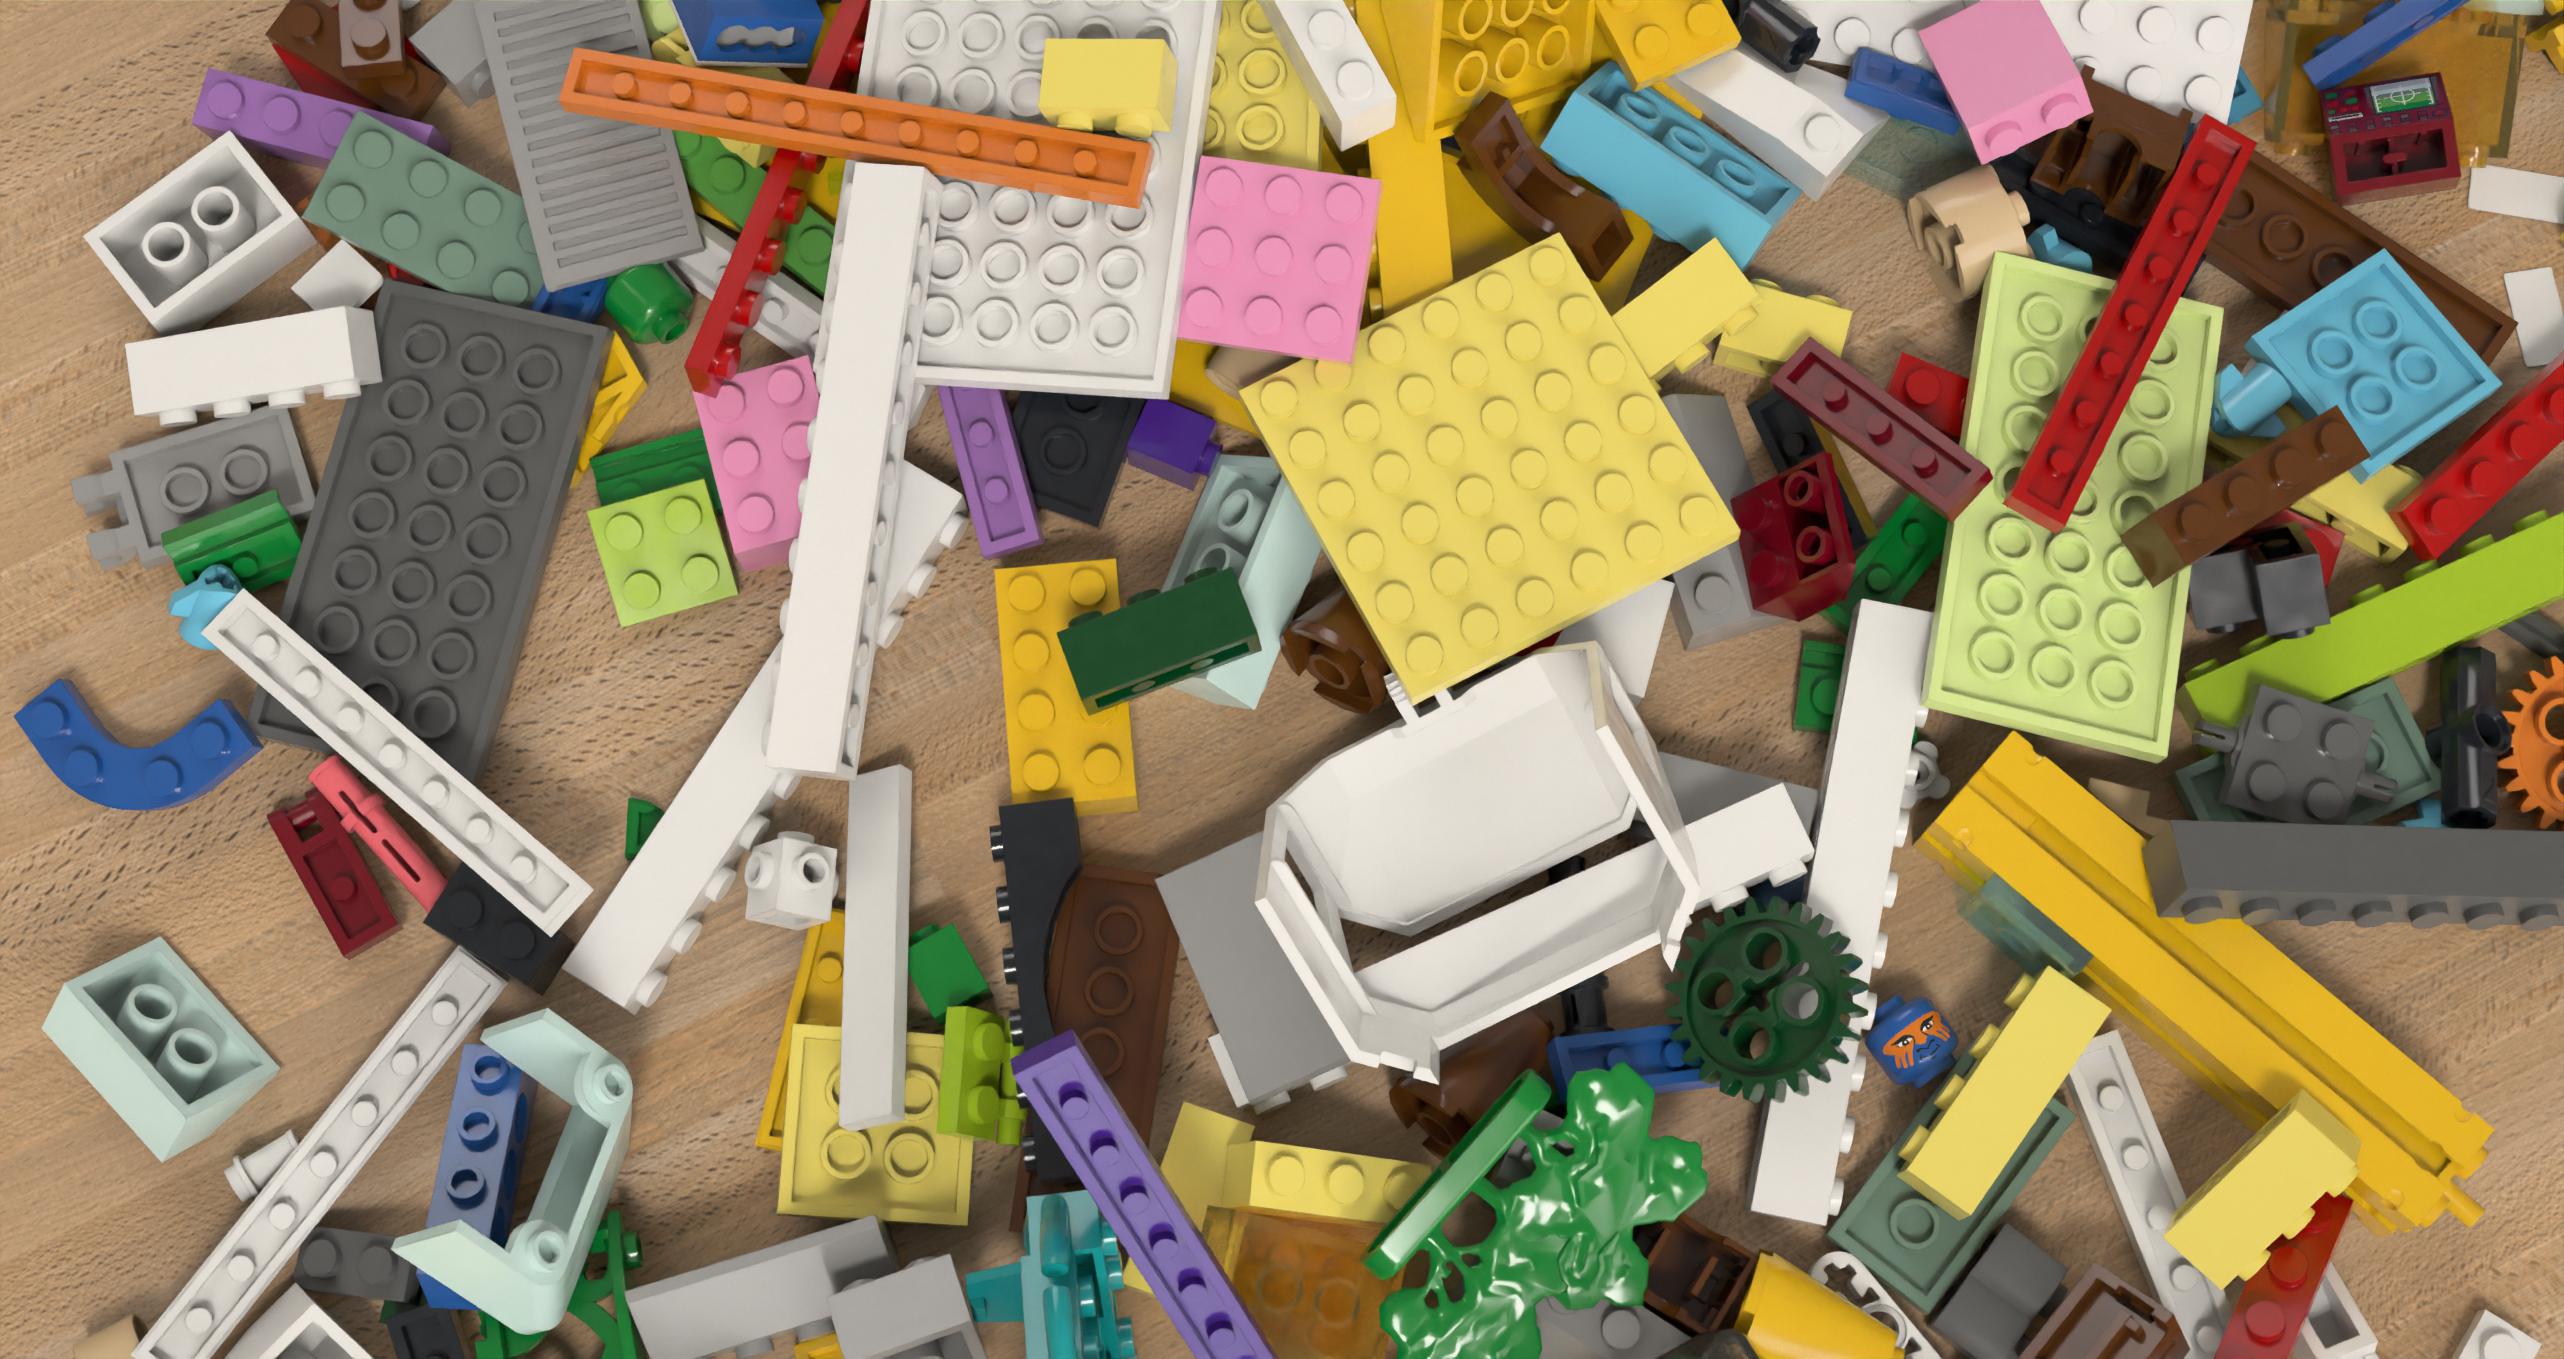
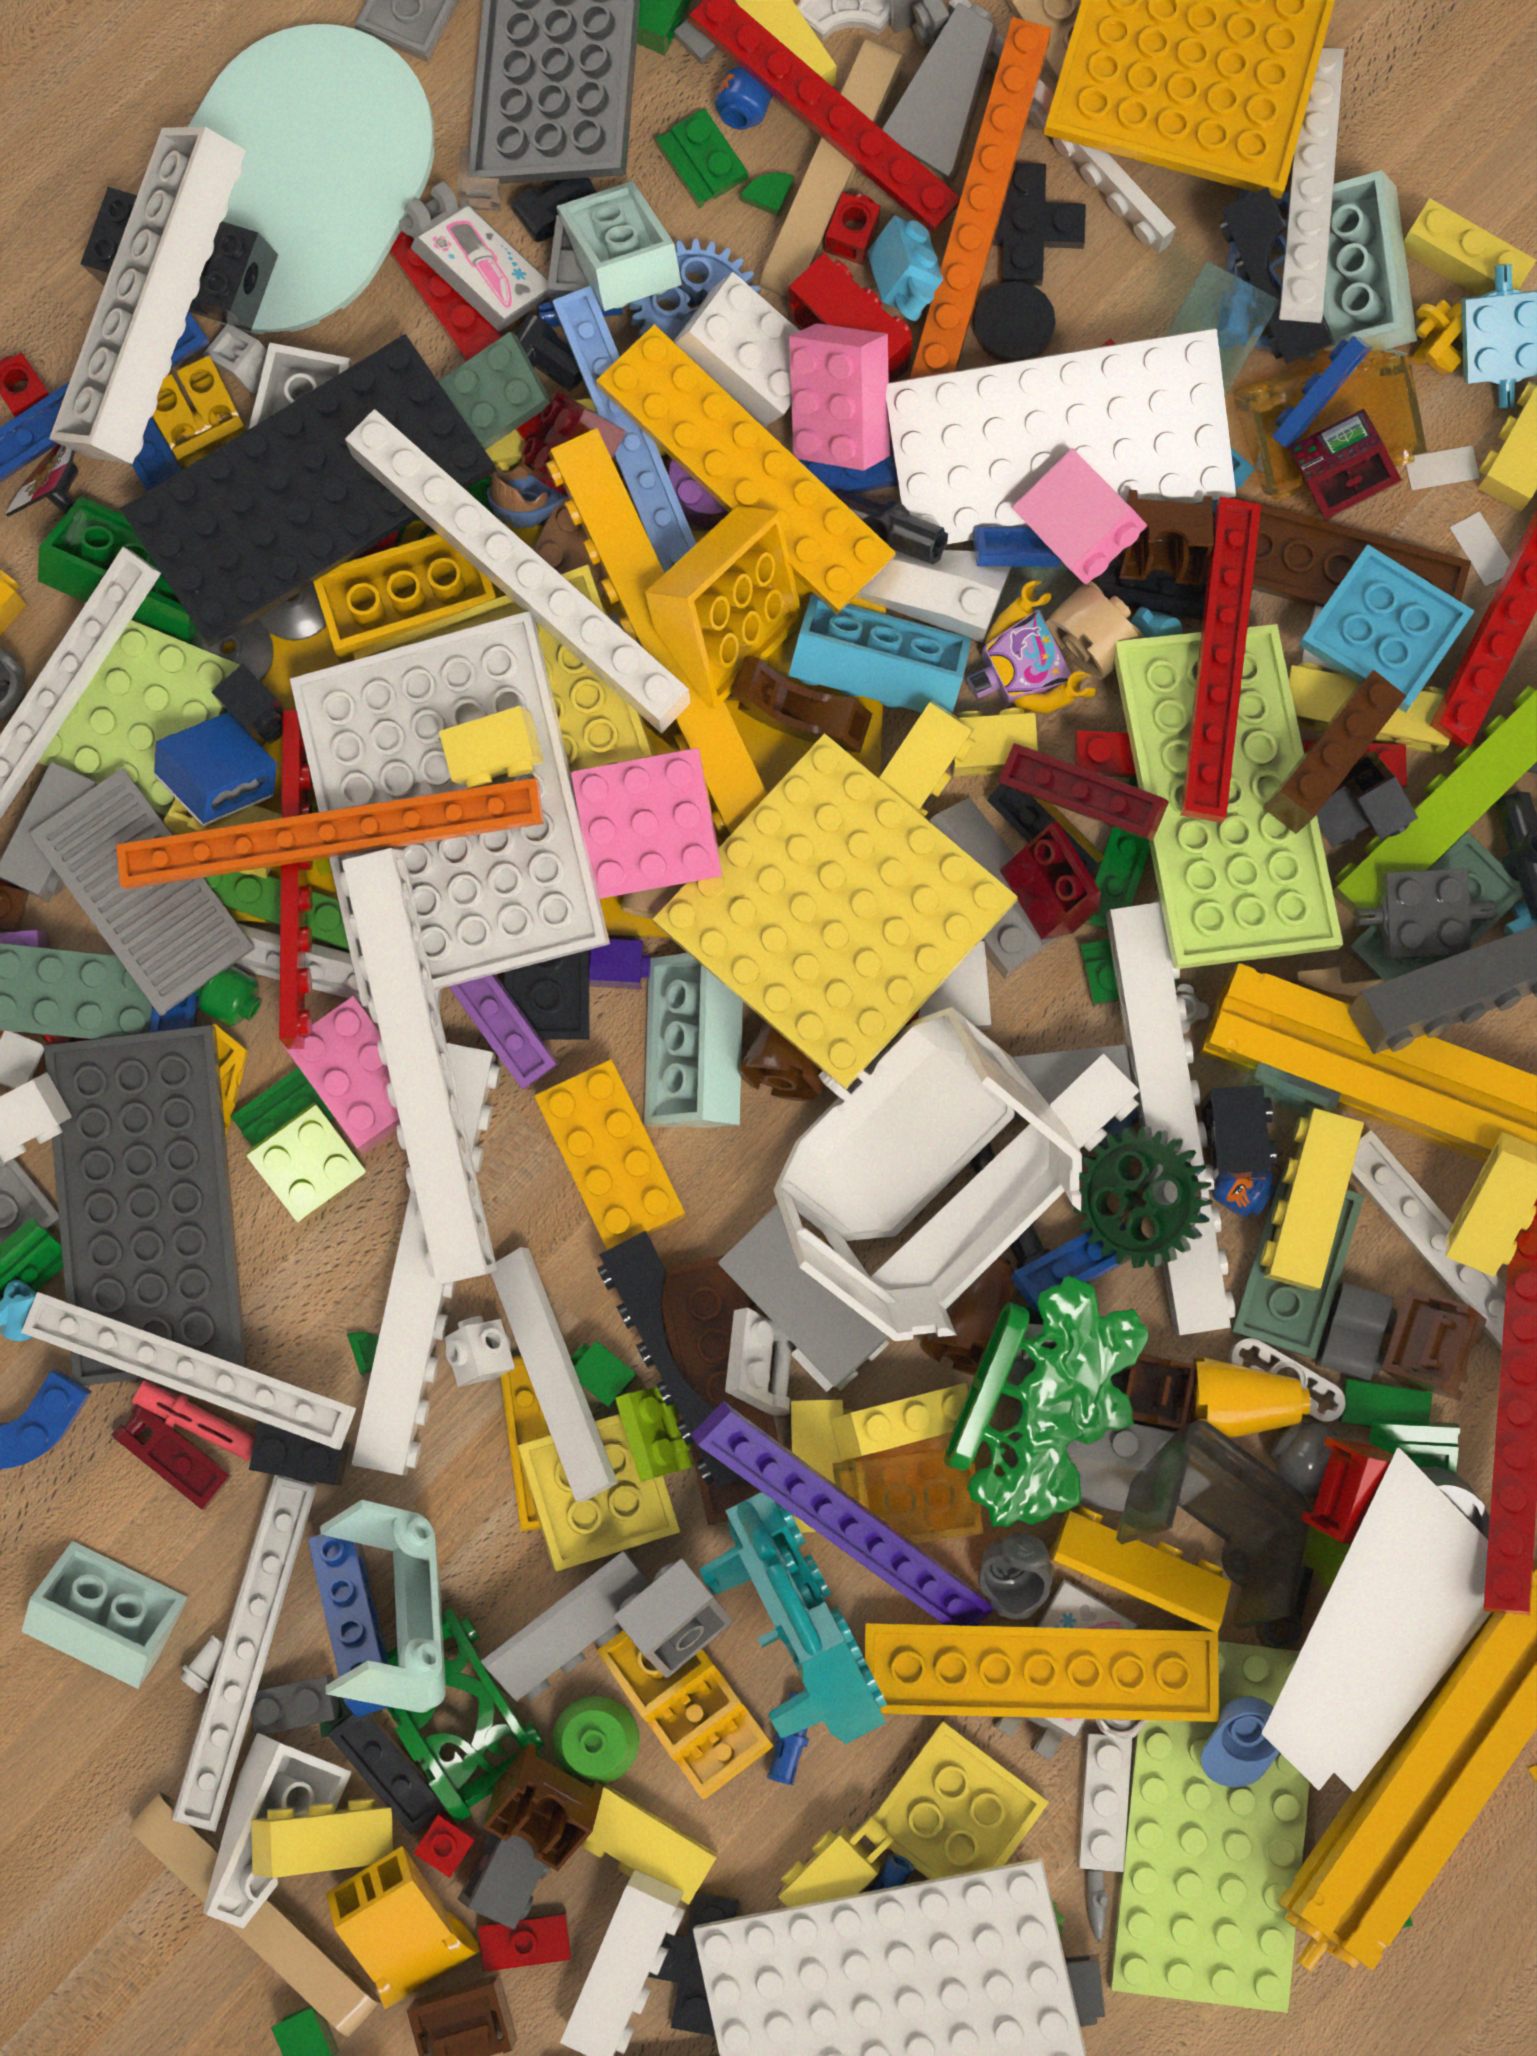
camera: 20 degrees left, 5 degrees up
(1149, 1027) = (751, 1360): none -> white plate
(1159, 639) = (663, 1106): dark green brick -> none
(1866, 243) = (1026, 661): none -> torso
(1931, 961) = (1238, 1132): none -> black brick
(2248, 403) = (1314, 684): medium azure piece -> none

